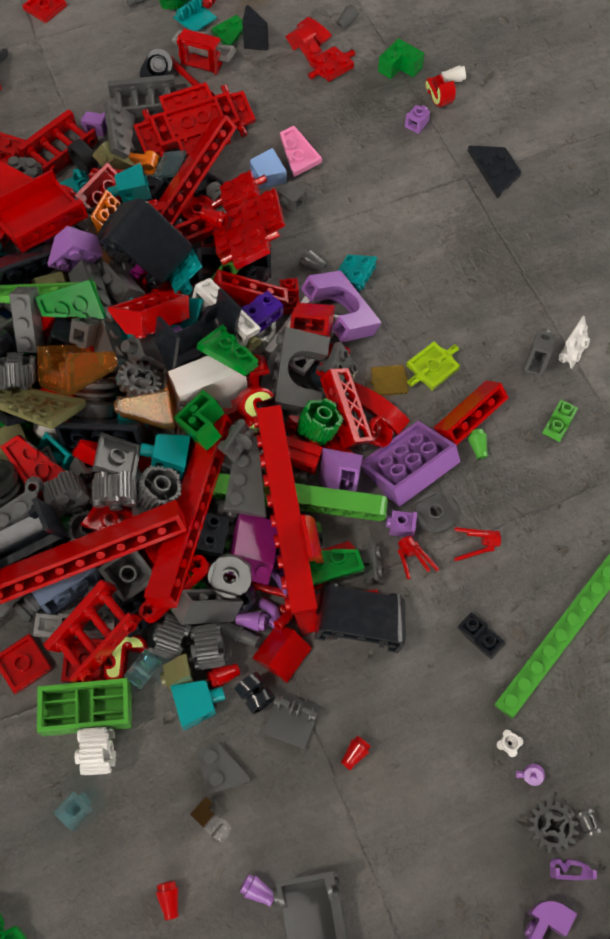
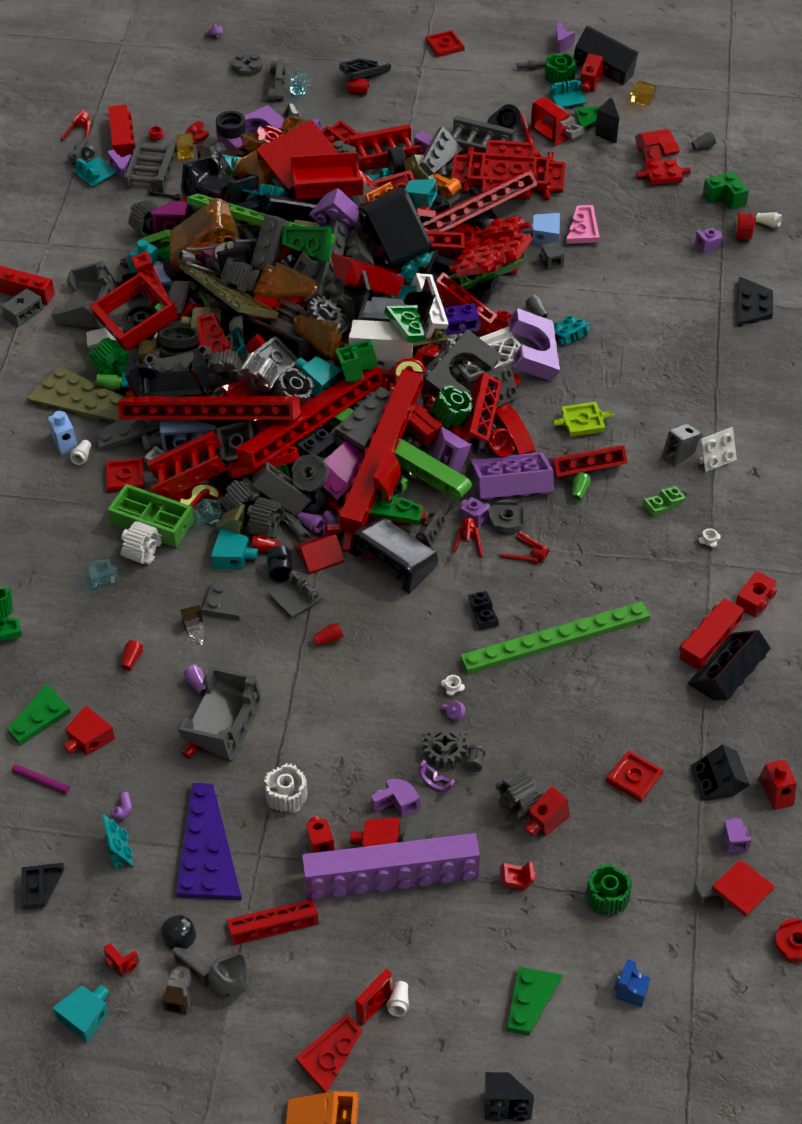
camera: 30 degrees right, 15 degrees down
(169, 164) = (464, 193): clear light blue piece -> none
(215, 218) = (467, 237): red cone -> none
(237, 440) = (374, 386): dark grey hips -> none
(313, 318) = (502, 341): red slope -> none
(389, 380) = (539, 416): clear yellow piece -> none

